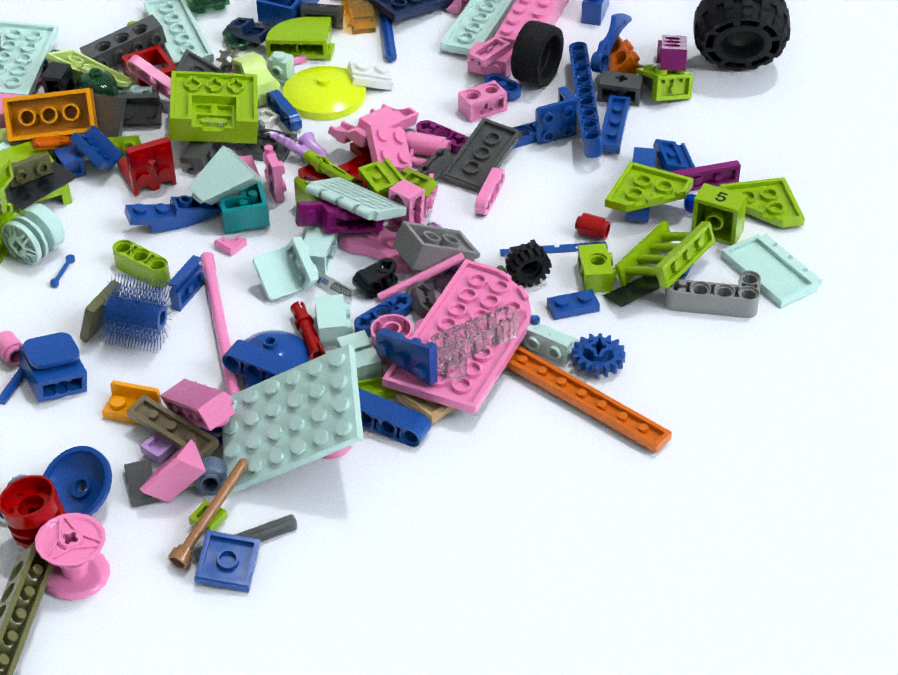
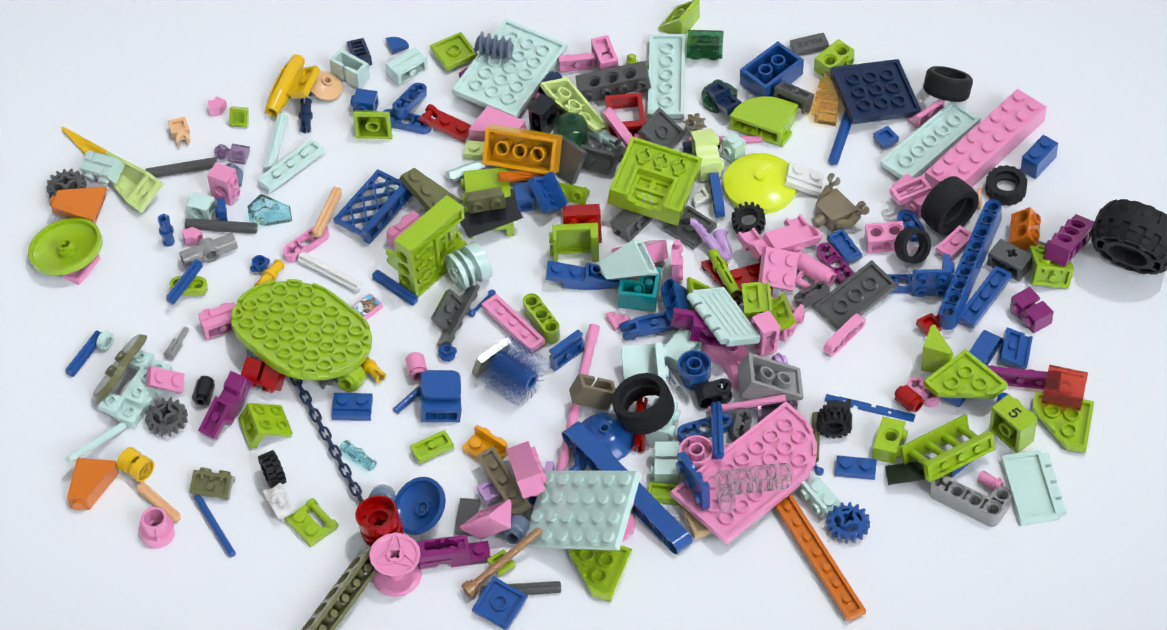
camera: 25 degrees right, 10 degrees up
(31, 285) = (451, 312): none -> dark grey bracket
(41, 326) = (447, 356): none -> blue plate
(63, 422) = (431, 446): none -> lime plate
(75, 39) = (577, 62): none -> bright pink plate
(99, 273) = (513, 323): none -> bright pink plate
(100, 22) = (604, 52): none -> bright pink brick
(141, 520) = (452, 550): none -> magenta plate
(148, 180) = (574, 239): none -> lime panel
(243, 313) = (596, 396): none -> dark tan piece
(267, 239) = (645, 326): none -> blue hinge
(285, 204) = (674, 296): none -> blue beam
(312, 318) = (635, 388): none -> black tyre
(327, 112) = (745, 210): none -> black tyre
(333, 484) = (601, 569): none -> lime plate
(344, 259) = (694, 368): none -> blue piece
(404, 306) = (717, 430): none -> blue axle
(420, 91) = (835, 209): none -> dark tan torso
(433, 26) = (885, 137): none -> blue plate
(445, 118) = (844, 246): none -> blue plate
(508, 99) = (901, 245): none -> black tyre
(550, 92) = (954, 242): none -> bright pink plate
(574, 159) = (925, 322): none -> red plate
(579, 24) = (1007, 173): none -> black tyre
(599, 175) = (935, 351): none -> lime slope
(600, 58) = (1029, 199): blue piece -> none
(614, 217) = (923, 391): none -> bright pink beam
(675, 127) = (1031, 314): none -> magenta piece
(725, 275) = (989, 480): none -> bright pink pin
(750, 170) = (1064, 387): none -> clear red tile

